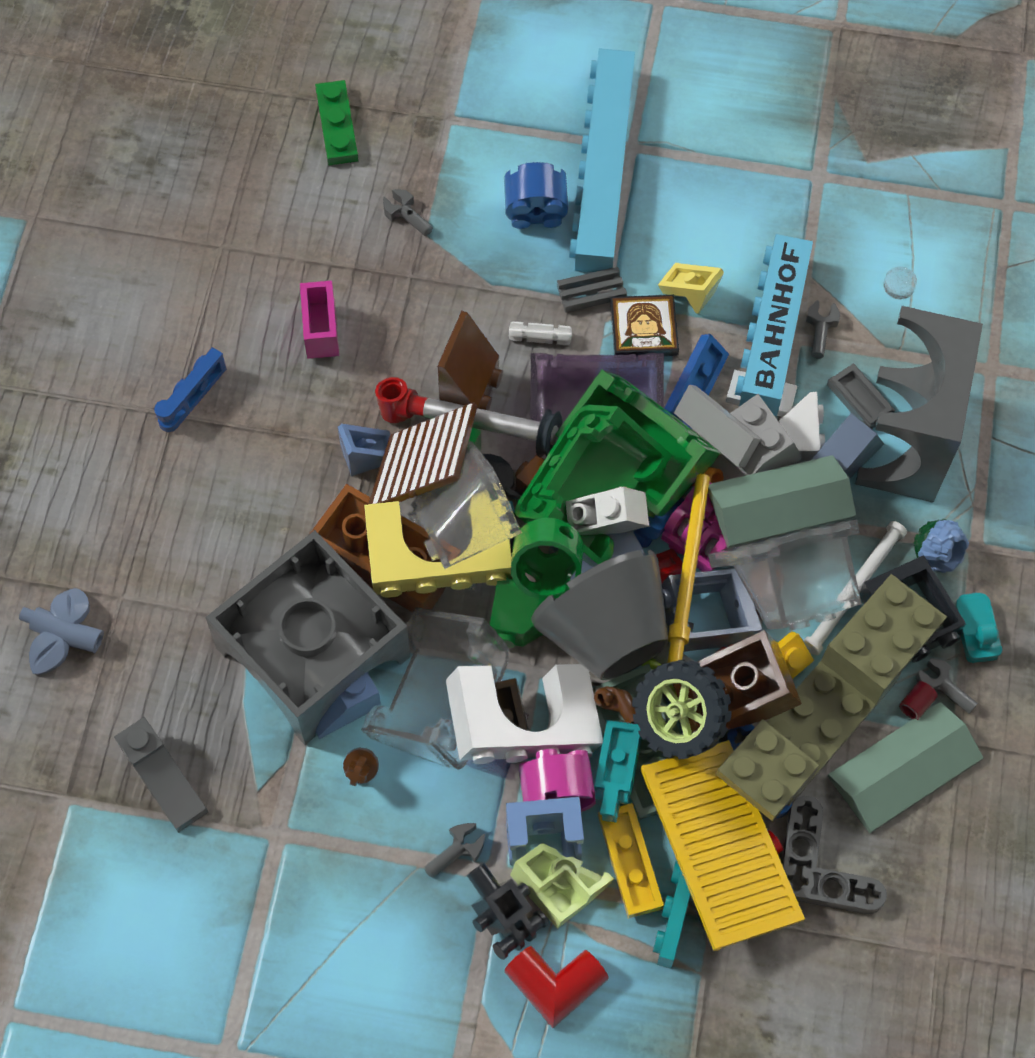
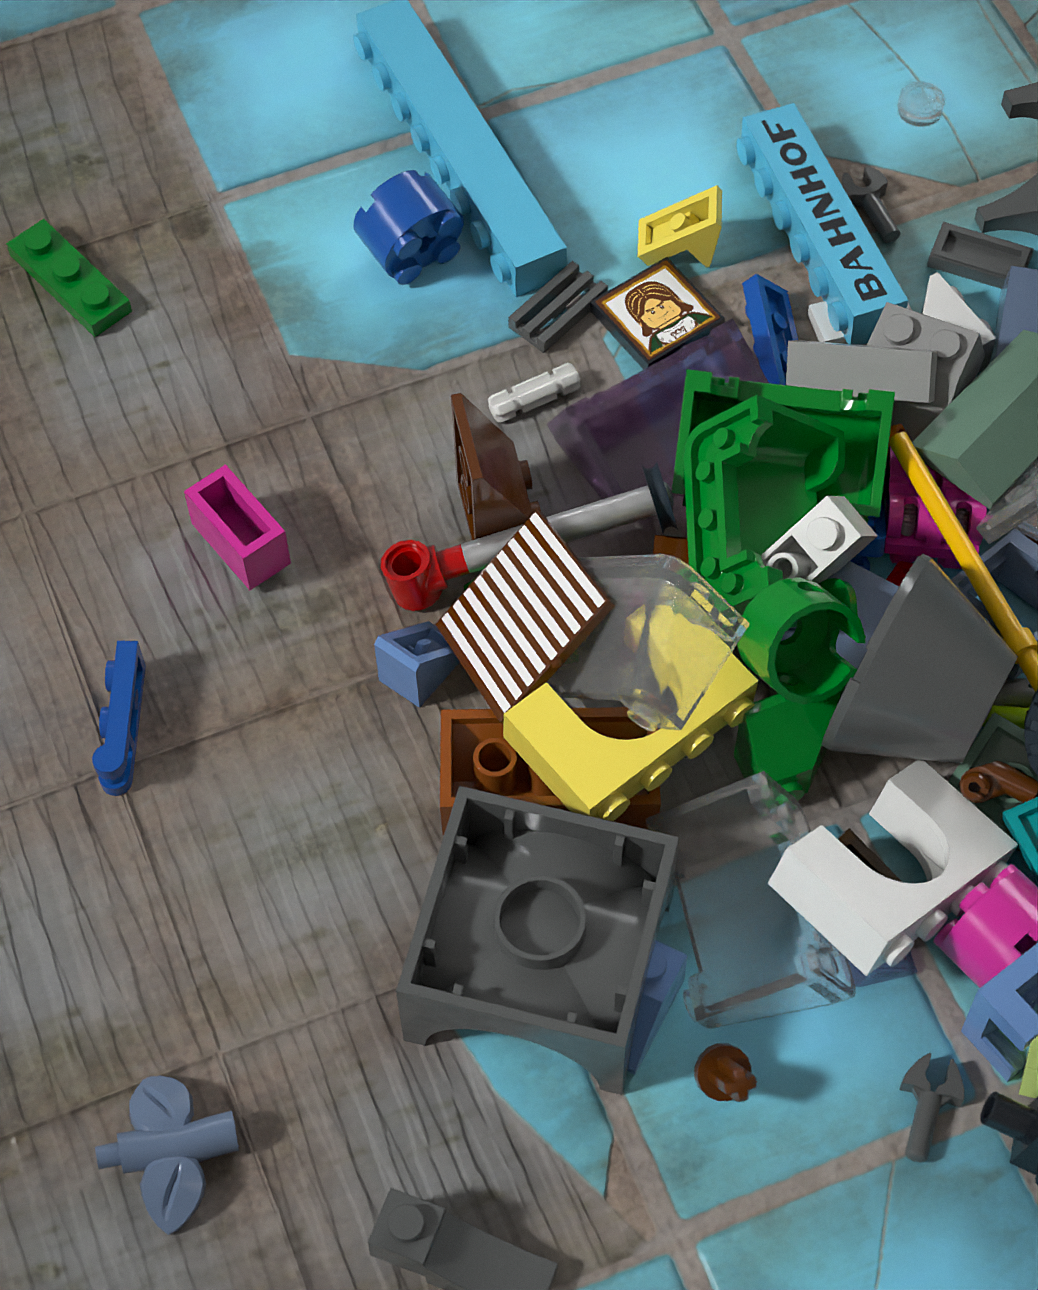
camera: 30 degrees left, 5 degrees down
(405, 211) = (241, 337): dark grey bar -> none

